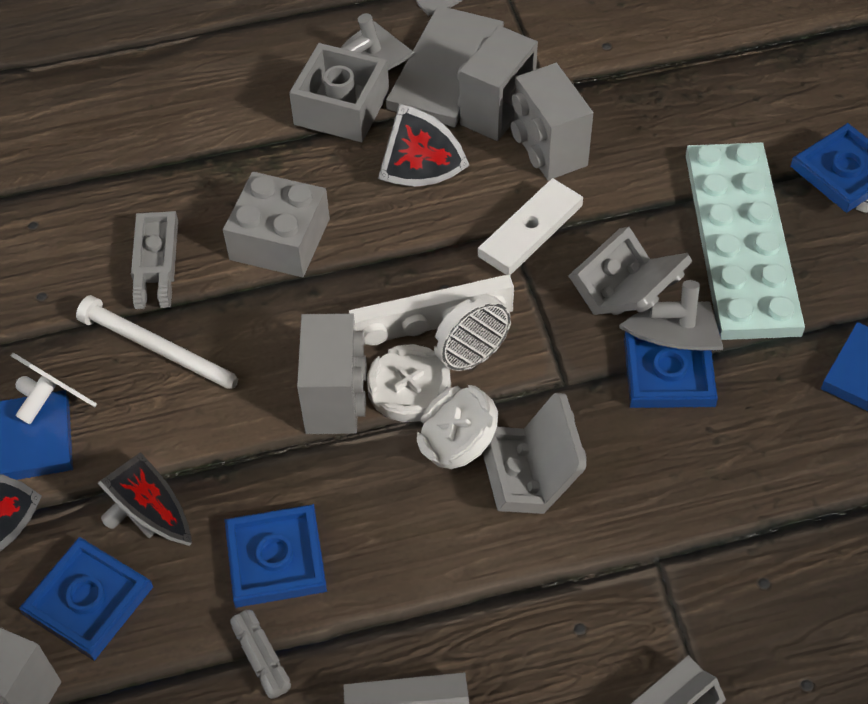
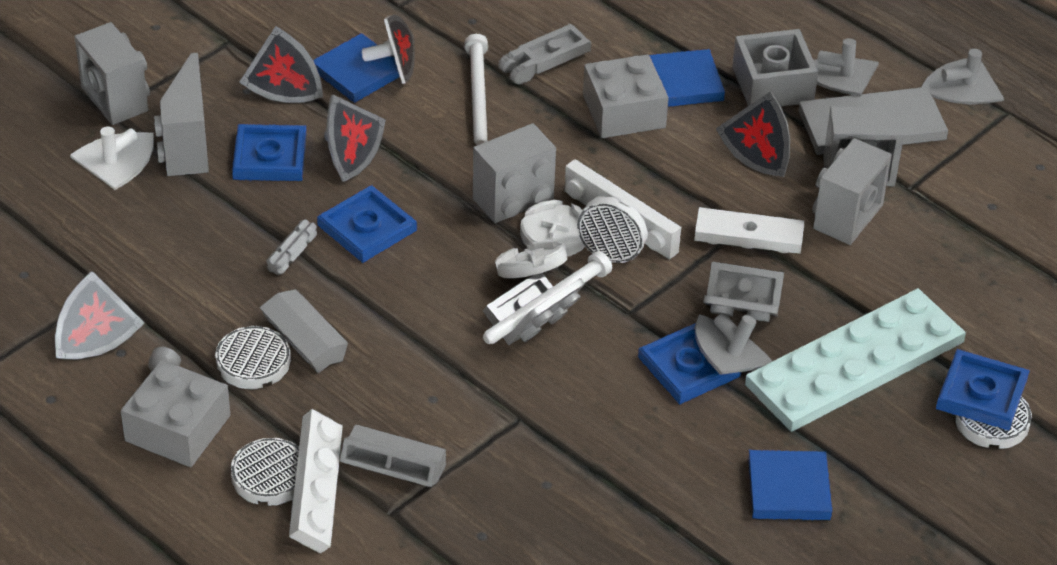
camera: 55 degrees right, 10 degrees down
(280, 157) = (689, 77): none -> blue tile
(506, 372) = (597, 265): none -> white bar

